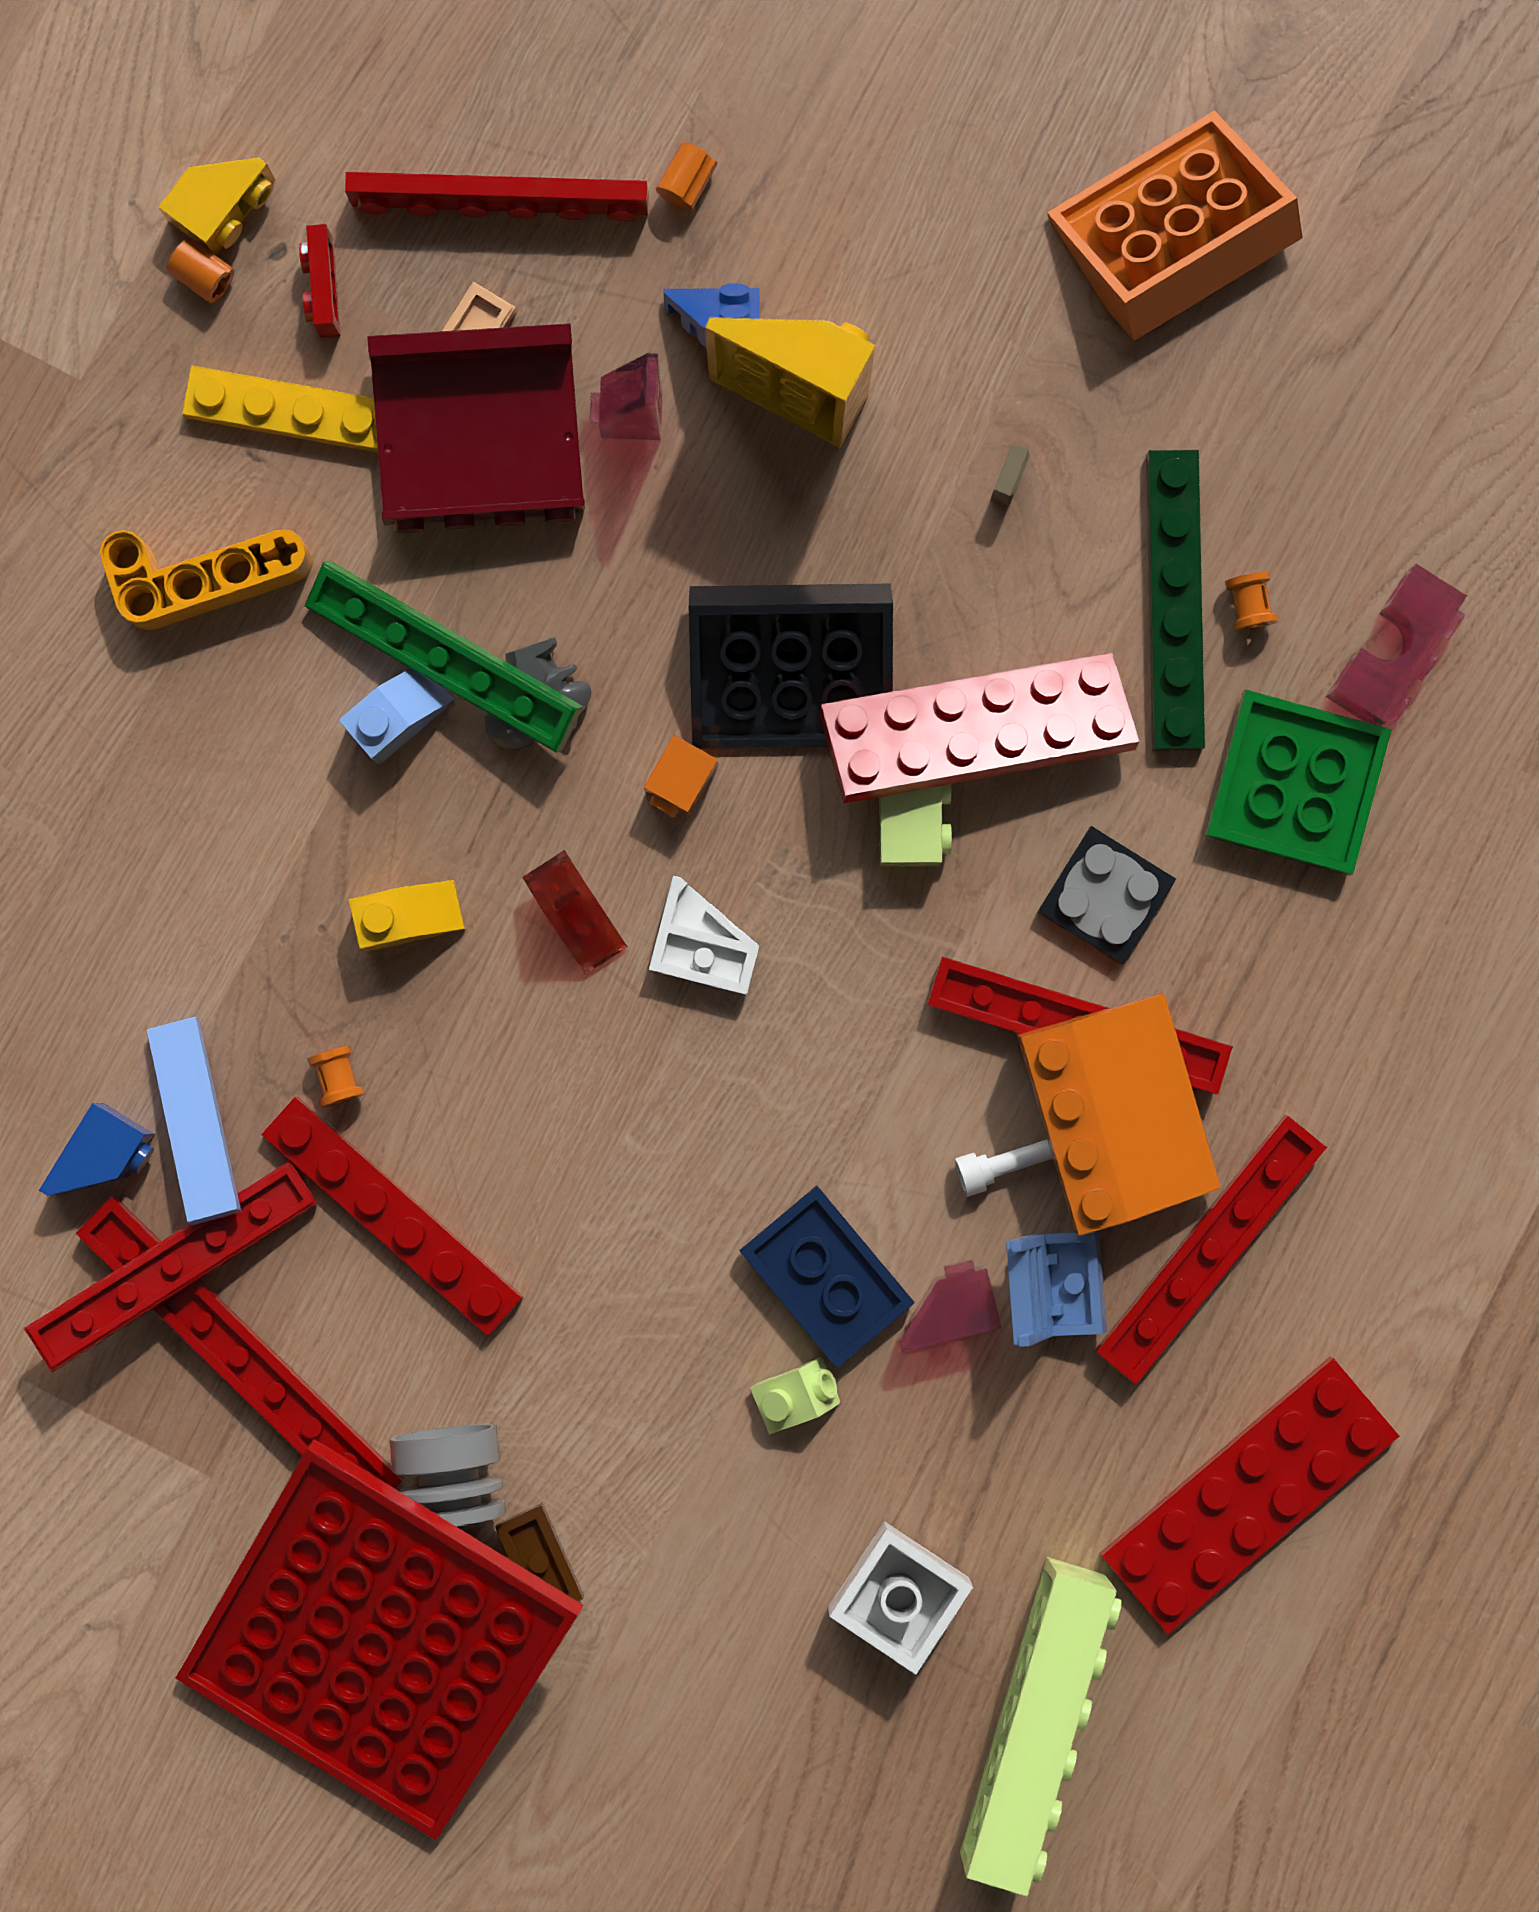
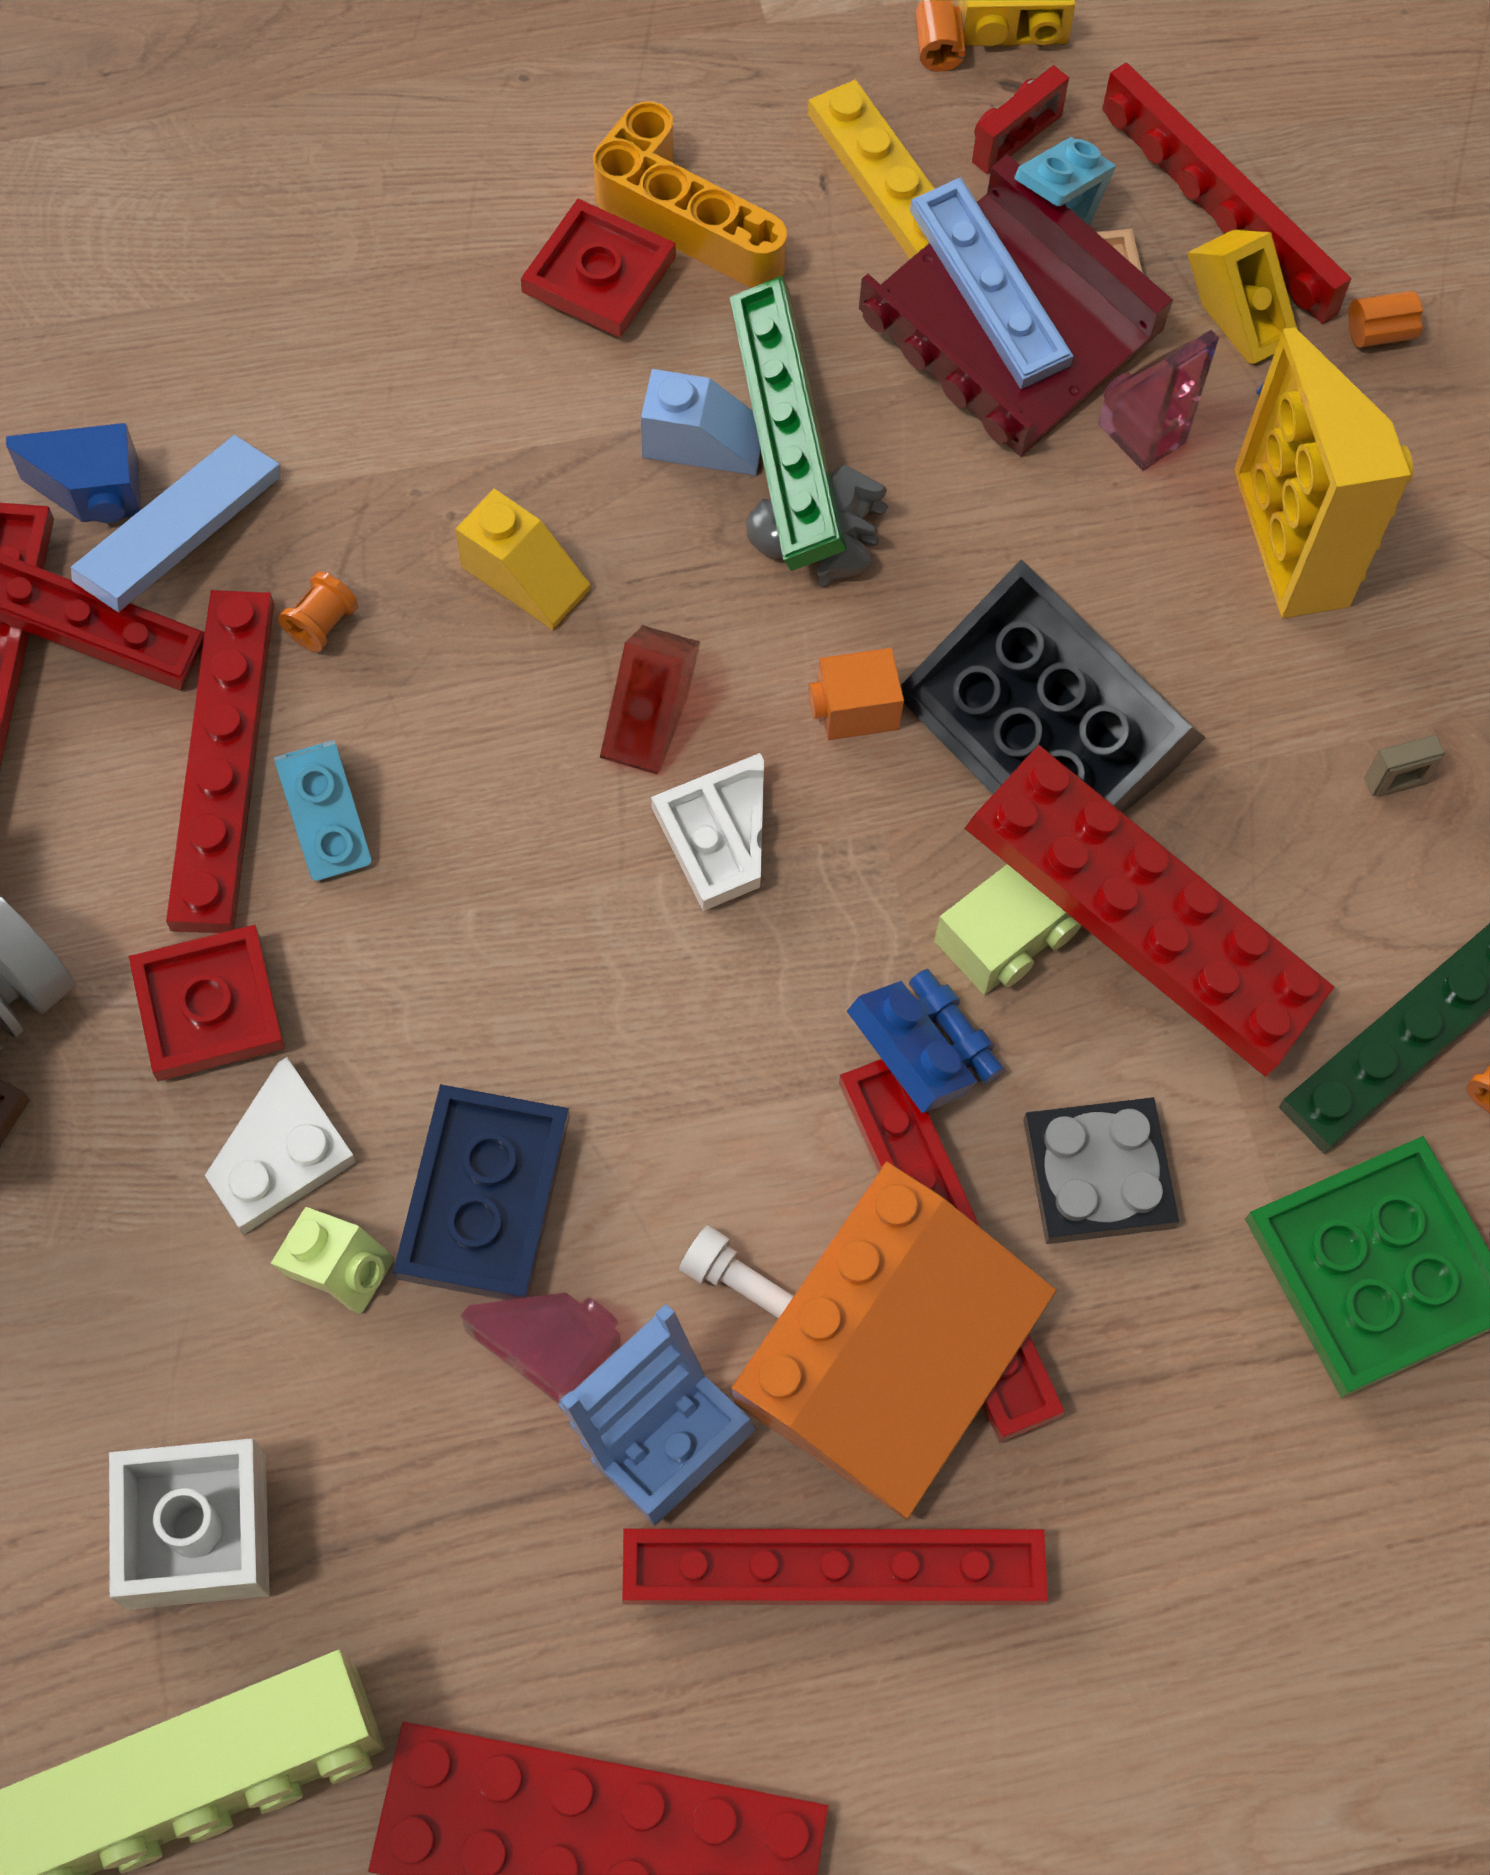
camera: 50 degrees right, 20 degrees down
(207, 677) = (598, 267): none -> red plate
(411, 306) = (1069, 175): none -> medium azure bracket
(444, 424) = (991, 283): none -> light blue tile
(482, 1179) = (323, 810): none -> medium azure bracket
(565, 1350) = (206, 1003): none -> red plate
(589, 254) = (1244, 290): none -> yellow slope
(697, 1376) = (277, 1151): none -> white wing
(943, 945) = (916, 1050): none -> blue plate

